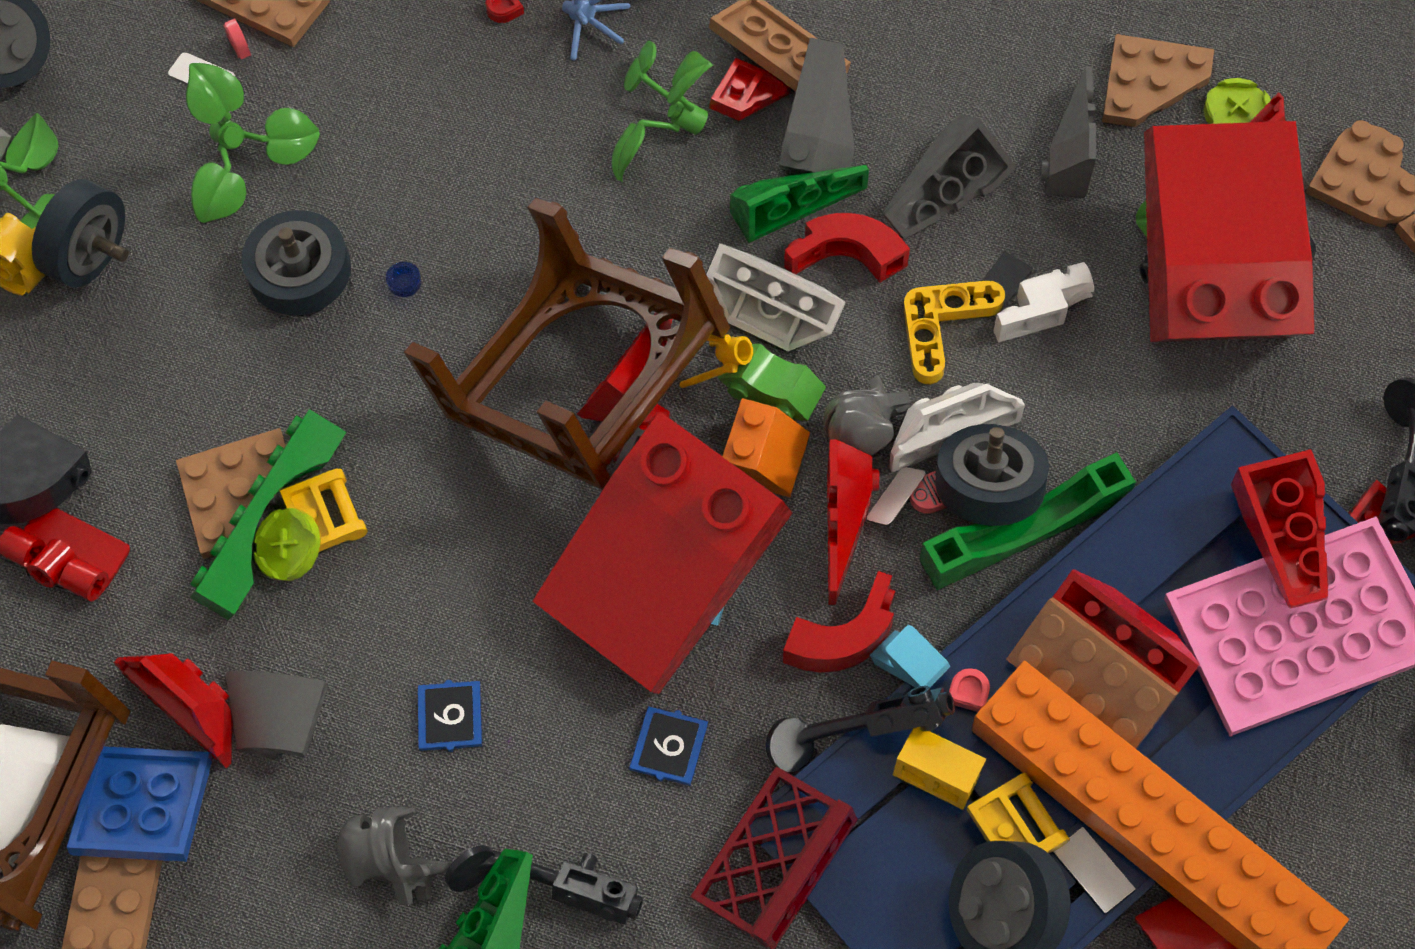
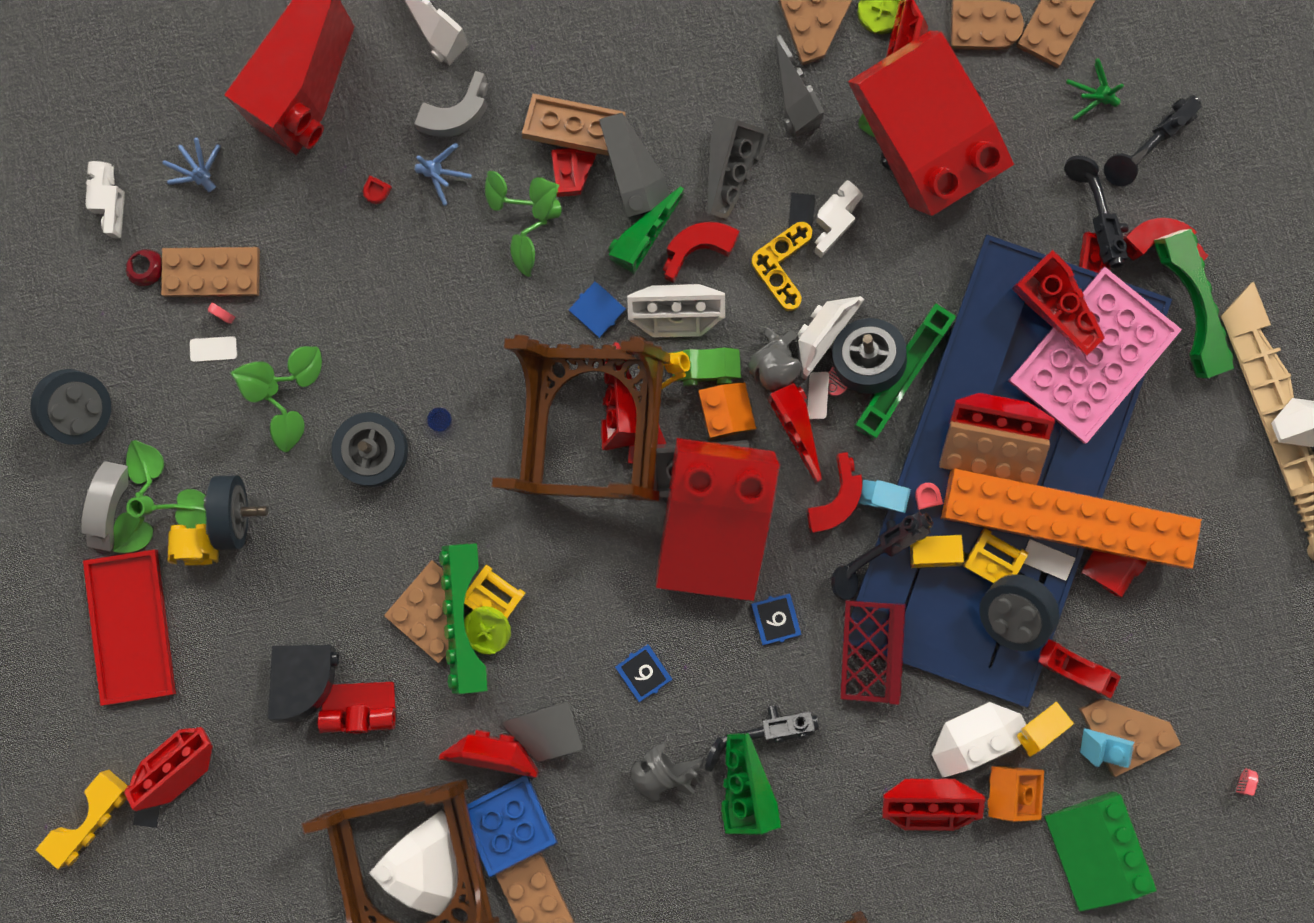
camera: 25 degrees left, 20 degrees up
(681, 239) = (597, 309): none -> blue piece

